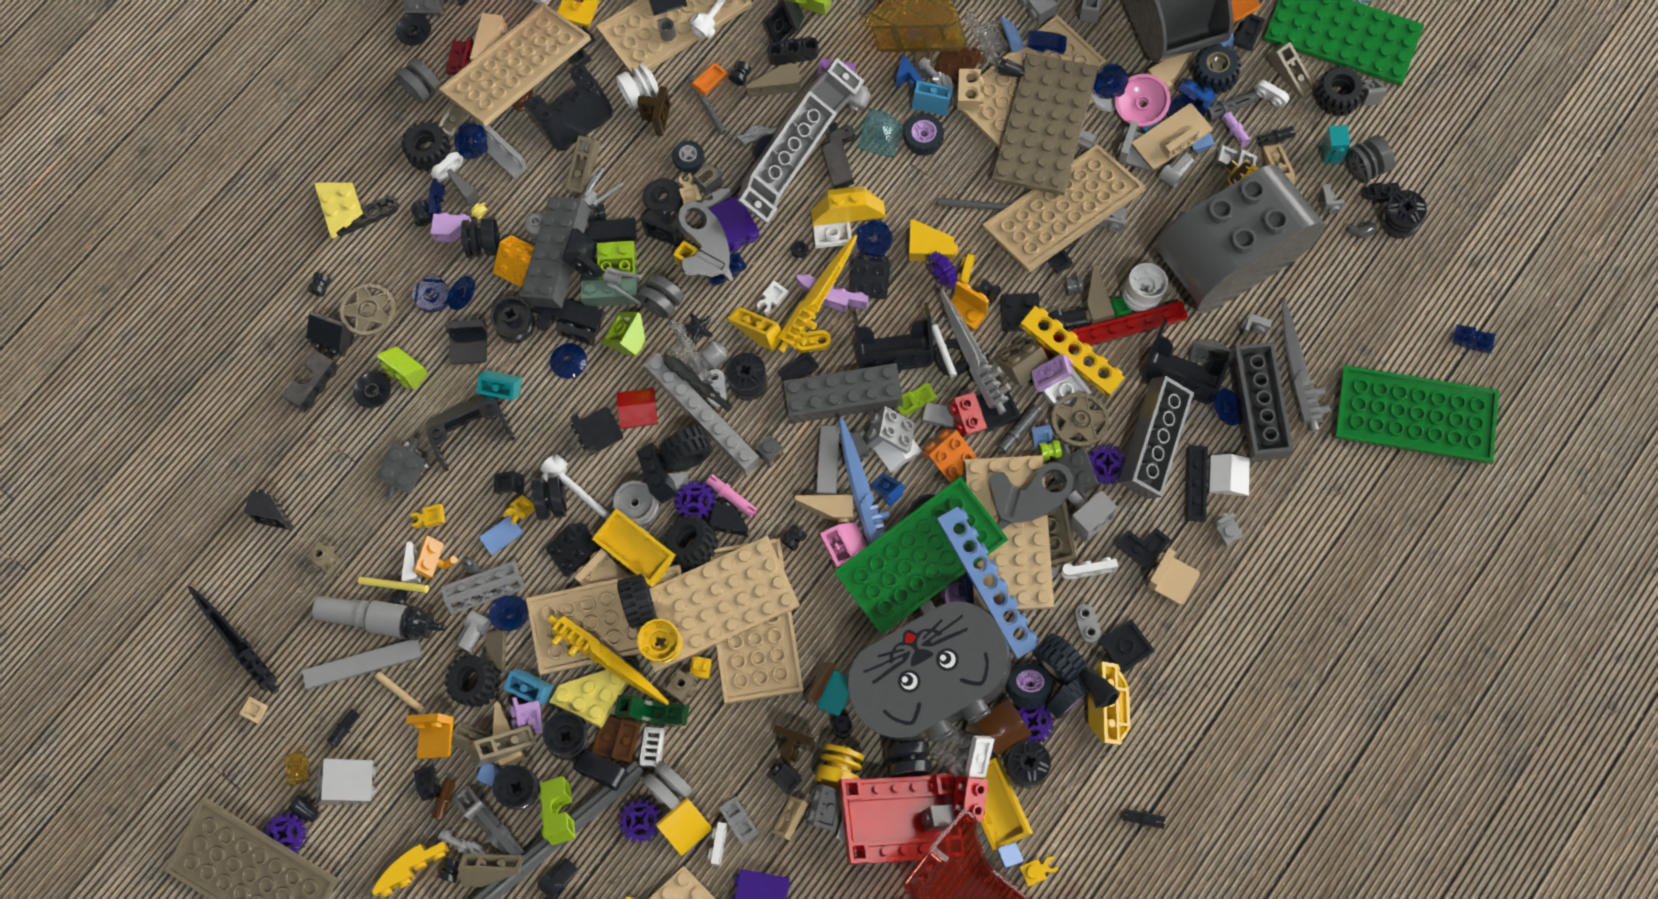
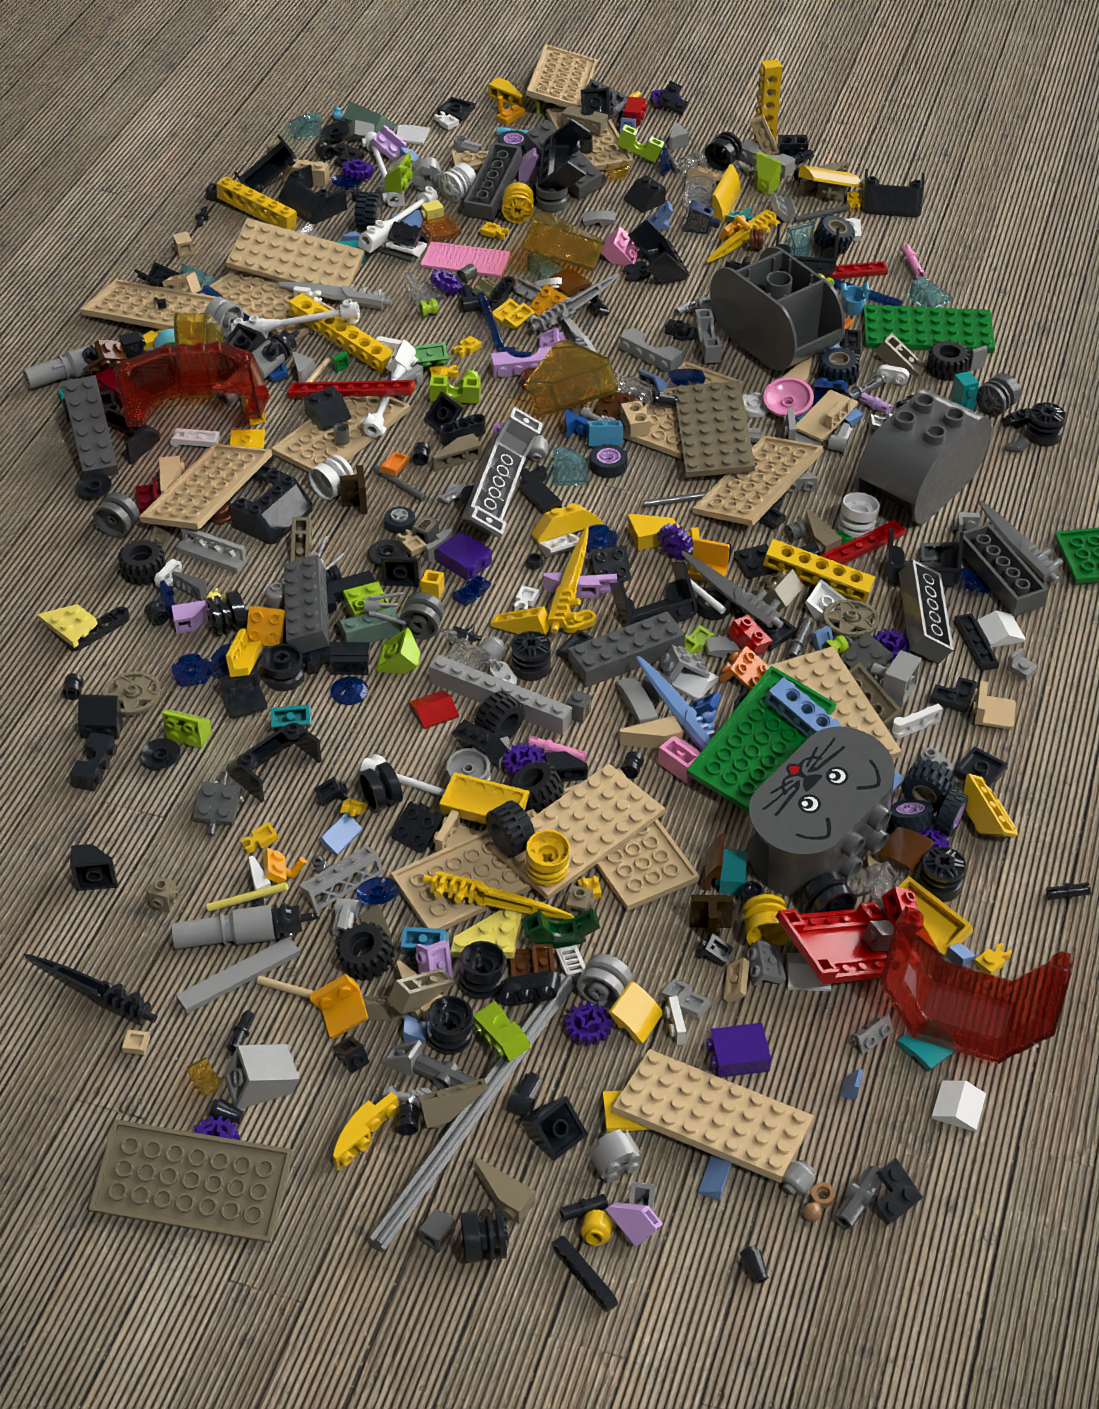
camera: 25 degrees left, 25 degrees down
(443, 801) = (374, 1064): reddish brown axle -> none
(478, 300) = (242, 655): none -> yellow fence
(479, 141) = (195, 549): clear blue plate -> none
(581, 253) = (337, 598): black bracket -> none
(596, 430) = (401, 732): black bracket -> none
(686, 373) = (485, 668): pearl dark grey sword -> none
(714, 253) = (457, 575): animal -> none
(979, 756) = (894, 870): white plate -> none
(1035, 502) = (842, 675): dark grey animal -> none
(1052, 372) = (811, 583): lavender bracket -> none
(1102, 691) = (982, 790): black piece -> none
(1117, 87) = (762, 392): clear blue plate -> none

